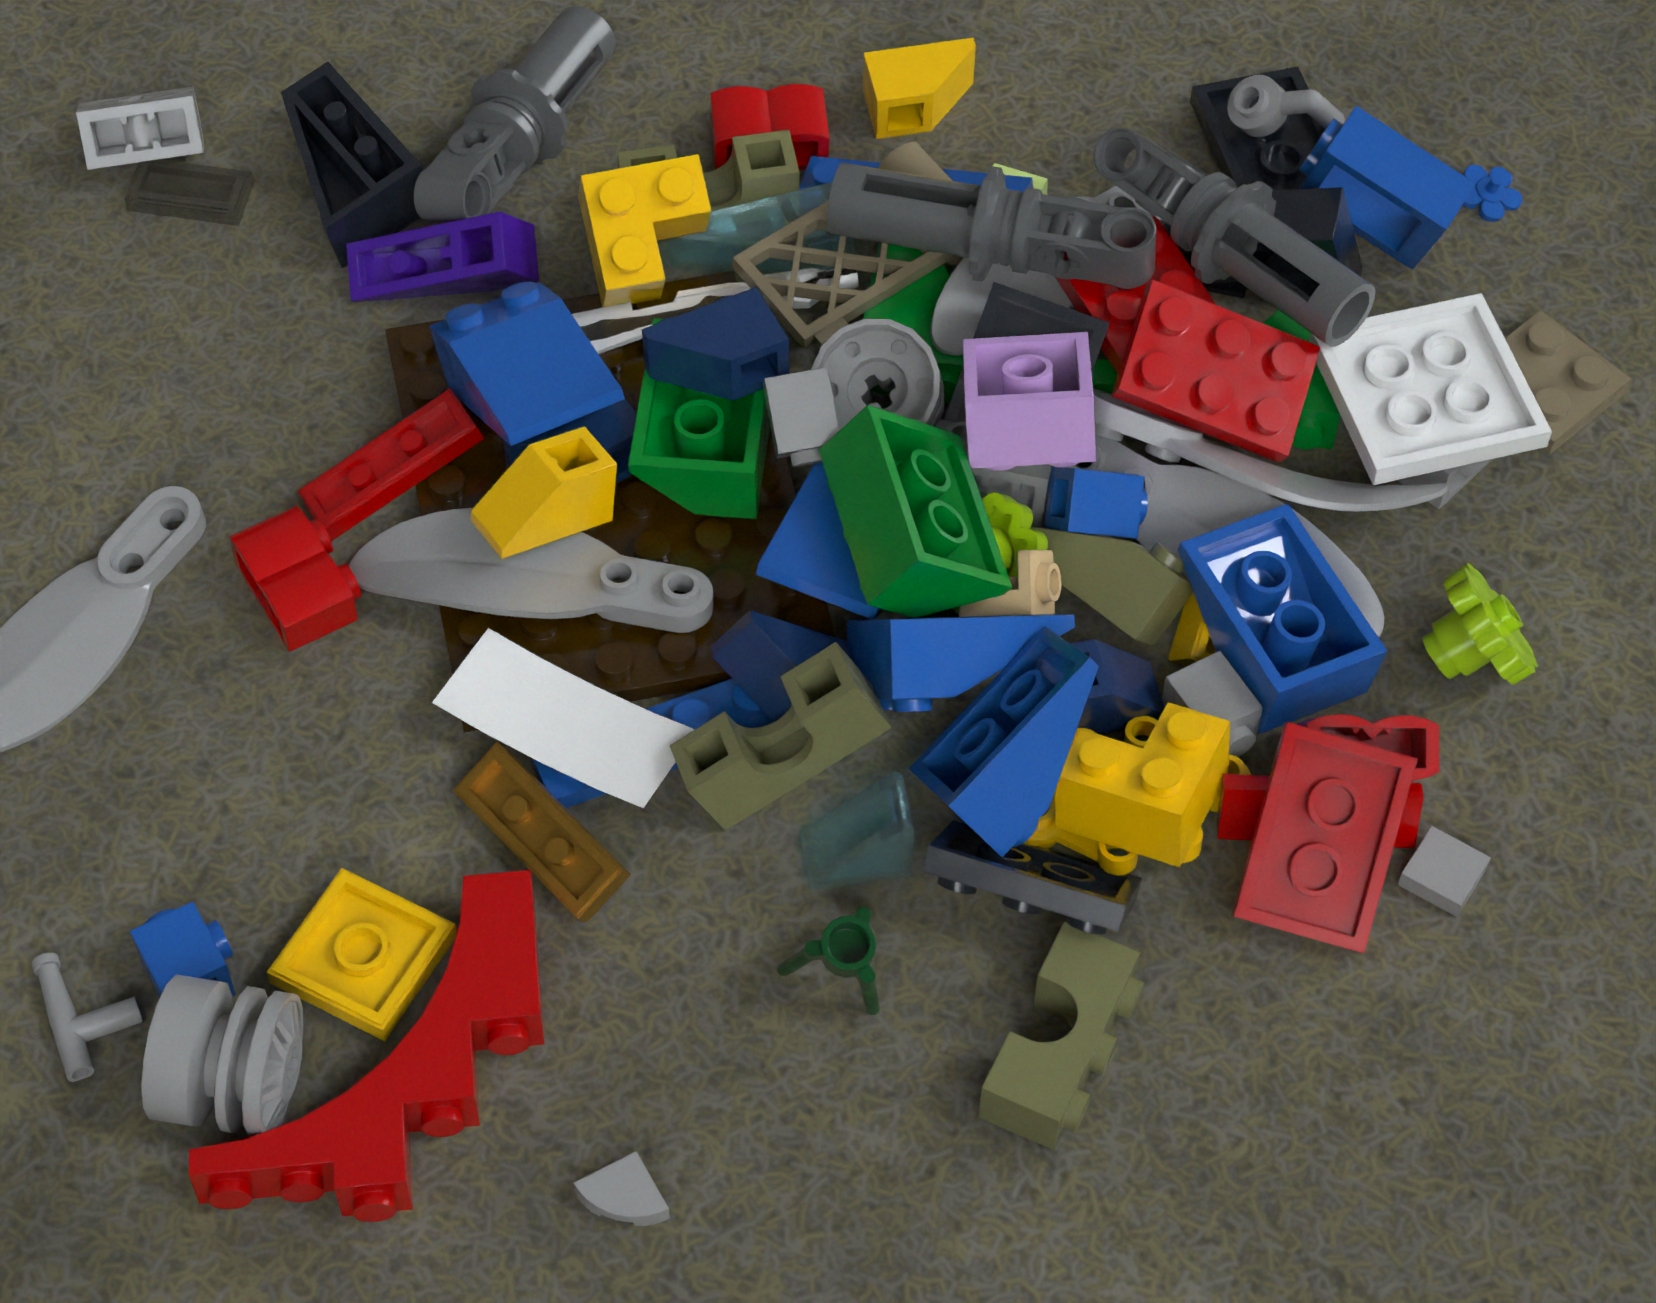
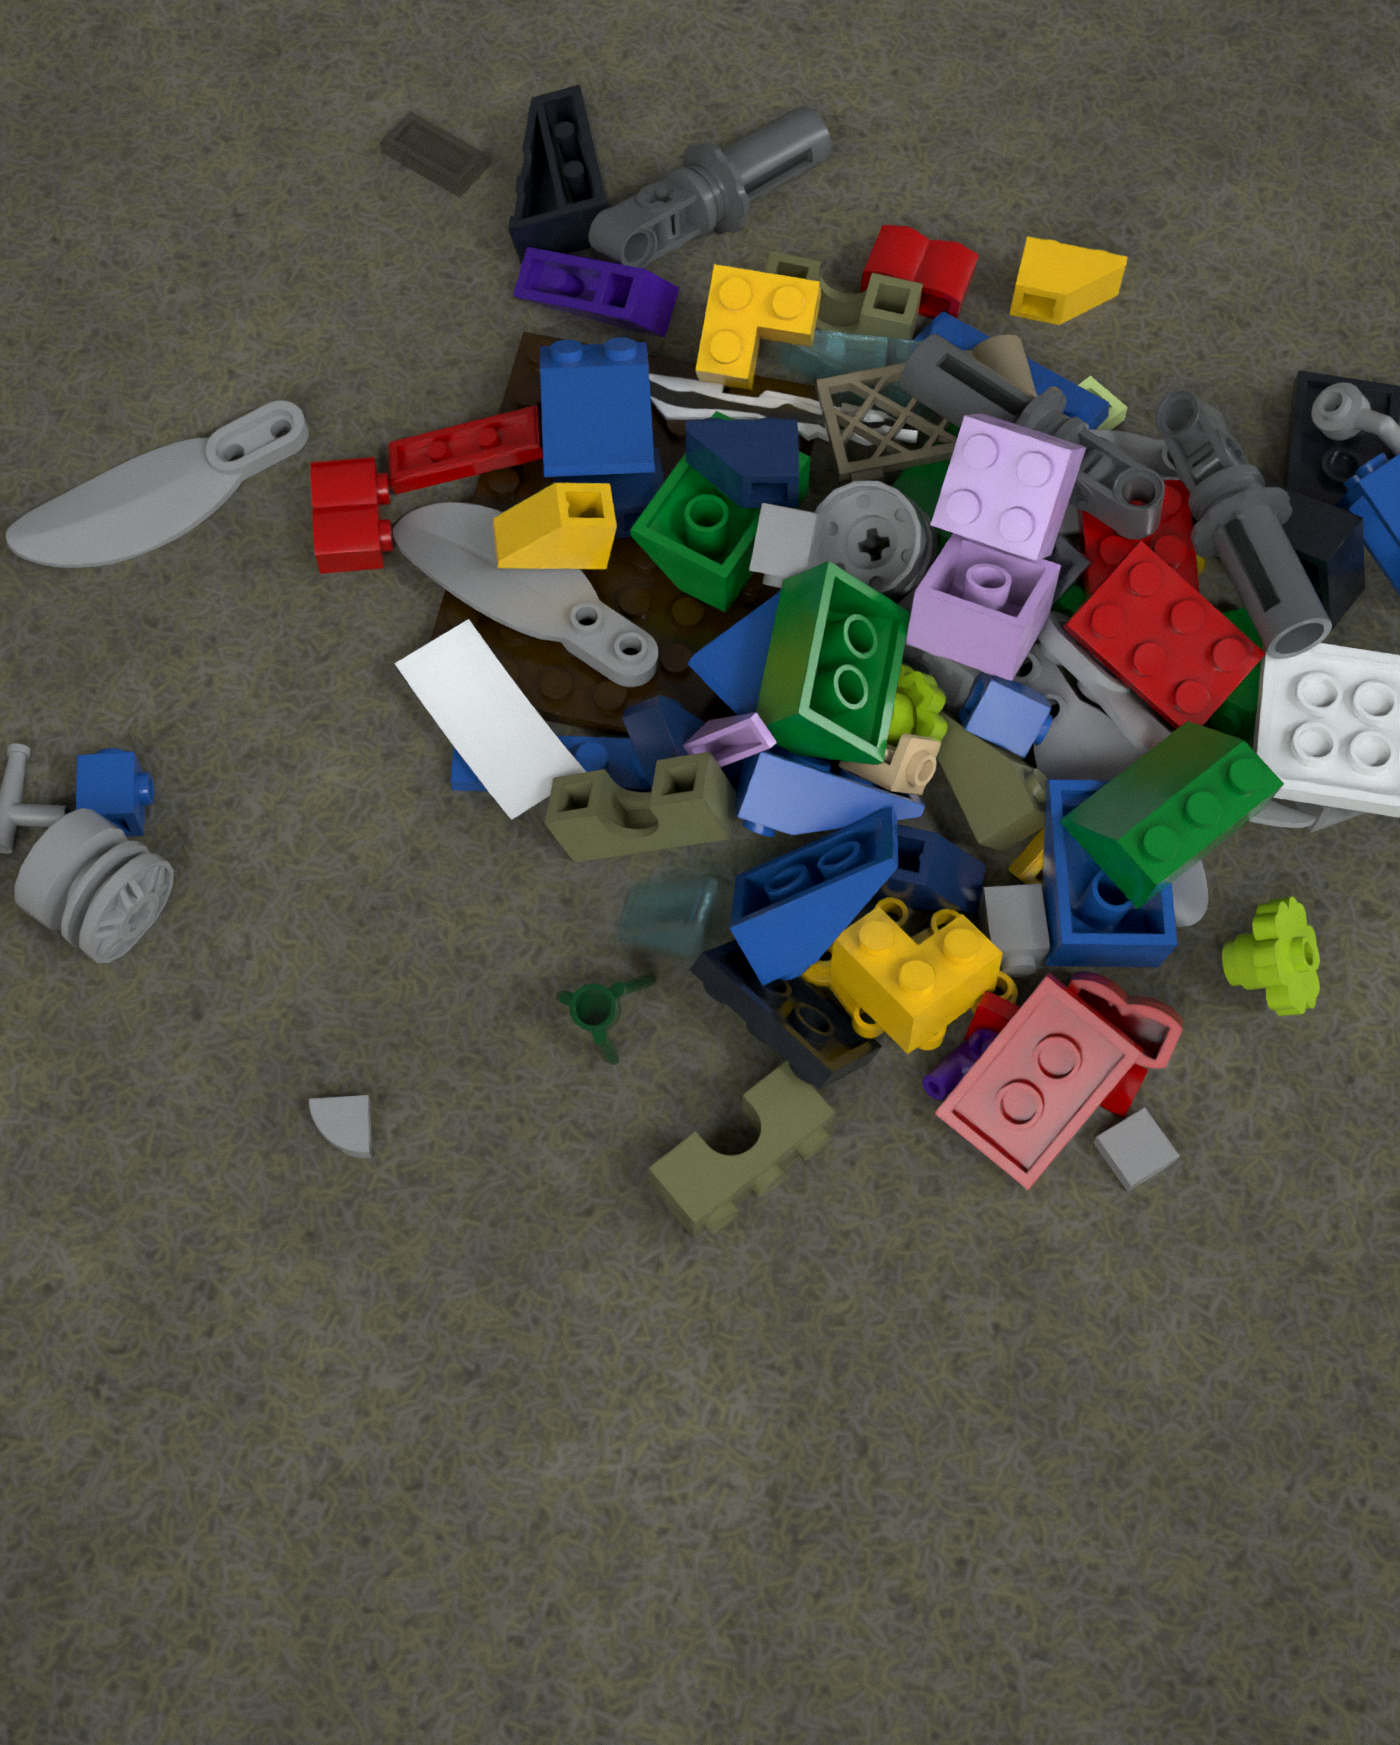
camera: 25 degrees right, 10 degrees up
(140, 128) = (416, 86): light grey brick -> none
(362, 954) = (247, 845): yellow plate -> none
(425, 1084) = (243, 970): red arch -> none
(541, 832) = (430, 804): pearl gold tile -> none
(849, 620) = (731, 738): none -> lavender piece
(999, 273) = (1008, 486): none -> lavender brick
(1229, 861) = (955, 1066): none -> dark purple arm
(1315, 520) = (1171, 808): none -> green slope

